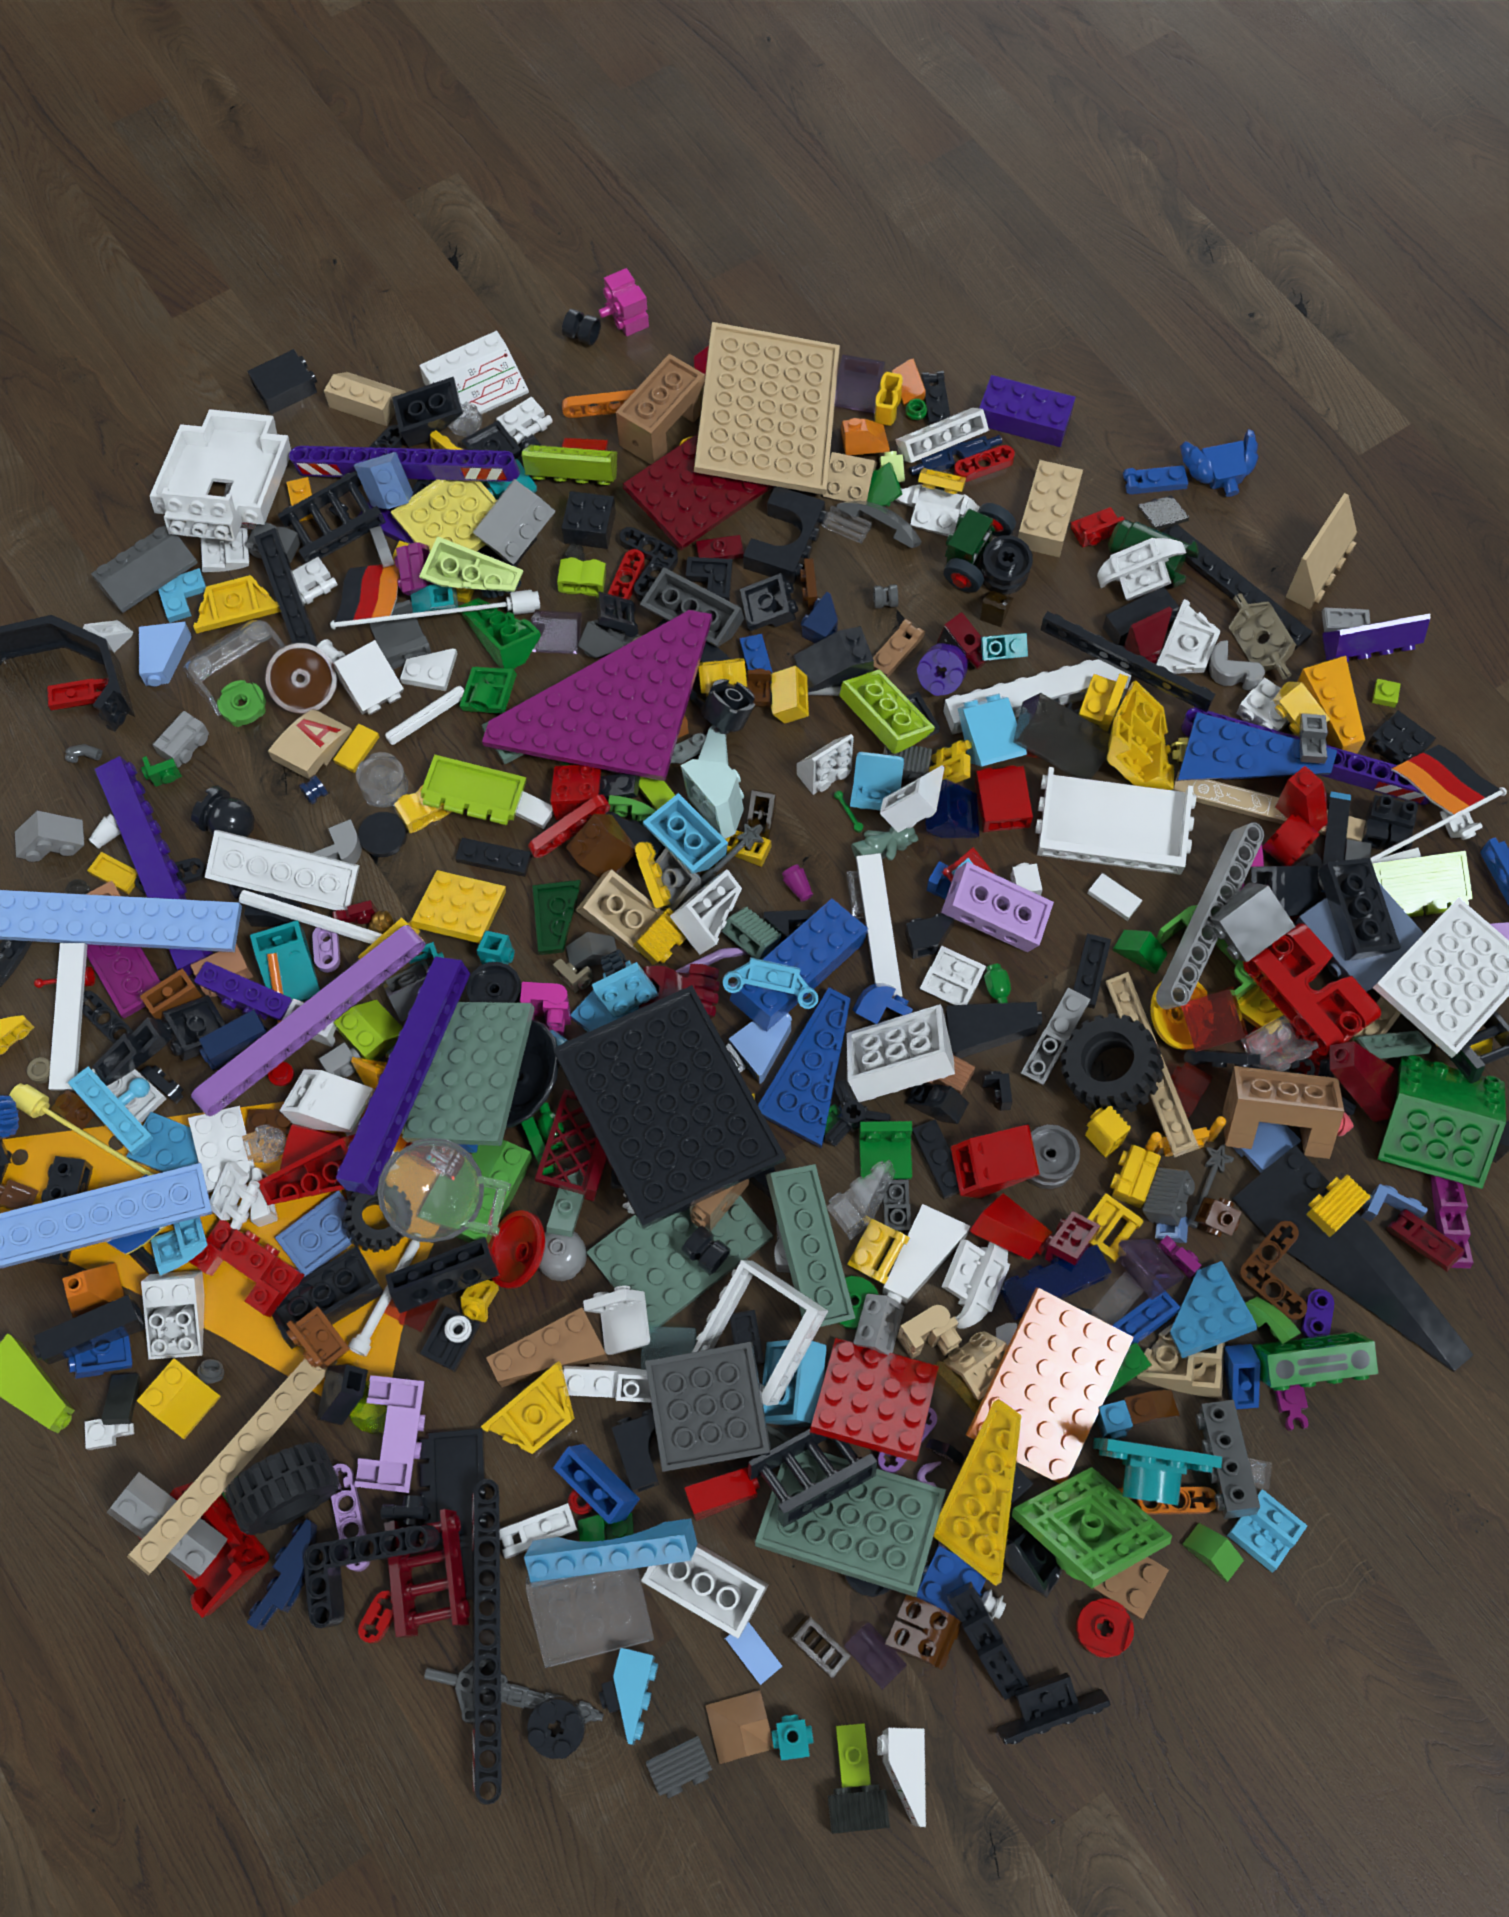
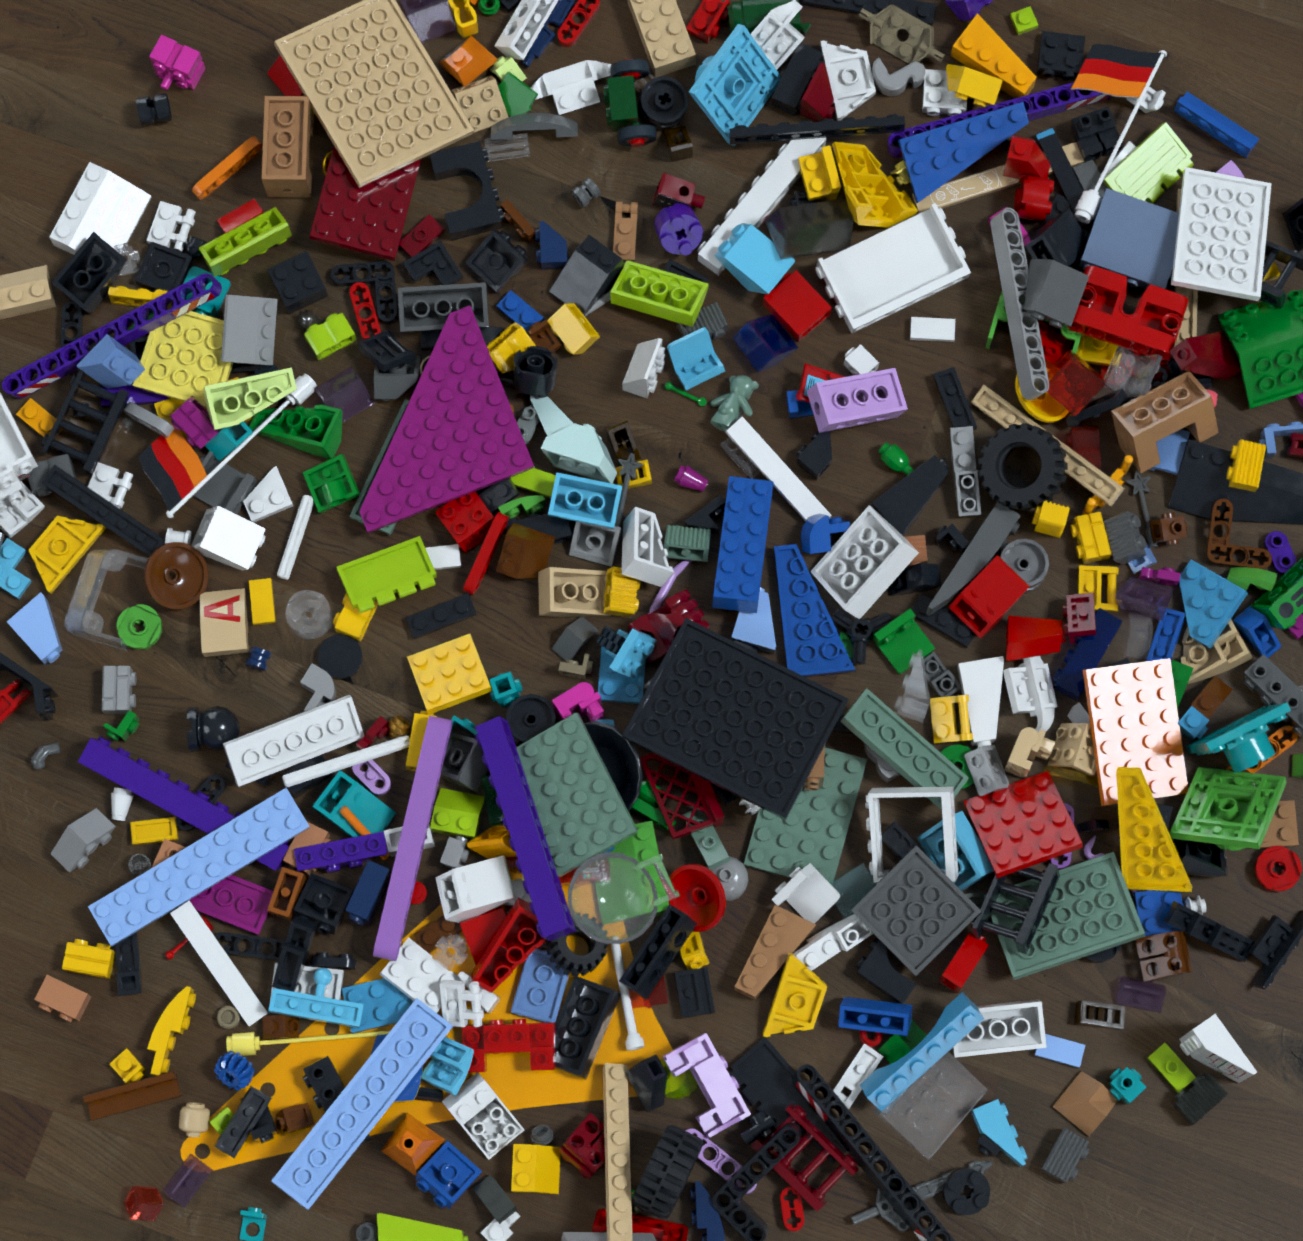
camera: 35 degrees left, 10 degrees up
(90, 1330) = (440, 1168): black slope -> none
(235, 1407) = (579, 1147): none -> dark red hips
(318, 1338) = (607, 1056): dark orange bracket -> none
(452, 1323) = (697, 974): white plate -> none
(554, 913) = (524, 630): dark green wing -> none
(652, 875) = (580, 549): yellow hinge -> none
(705, 1250) = (832, 803): black wheel -> none
(771, 976) = (739, 571): medium azure plate -> none
(913, 801) = (736, 355): white slope -> none
(933, 478) = (560, 60): yellow plate -> none
(953, 977) = (858, 475): white slope -> none
(957, 767) = (744, 310): yellow plate -> none
(1004, 646) = (712, 176): teal slope -> none
(1036, 1110) = (980, 552): none -> dark grey slope
(1080, 577) = (735, 82): none -> medium azure piece
(1141, 949) = (979, 359): green slope -> none
(1216, 974) = (1053, 344): none -> red plate
(1312, 738) = (1000, 106): dark grey slope -> none
(1358, 908) = (1120, 225): black slope -> none
(1395, 1044) = (1207, 315): sand green plate -> none

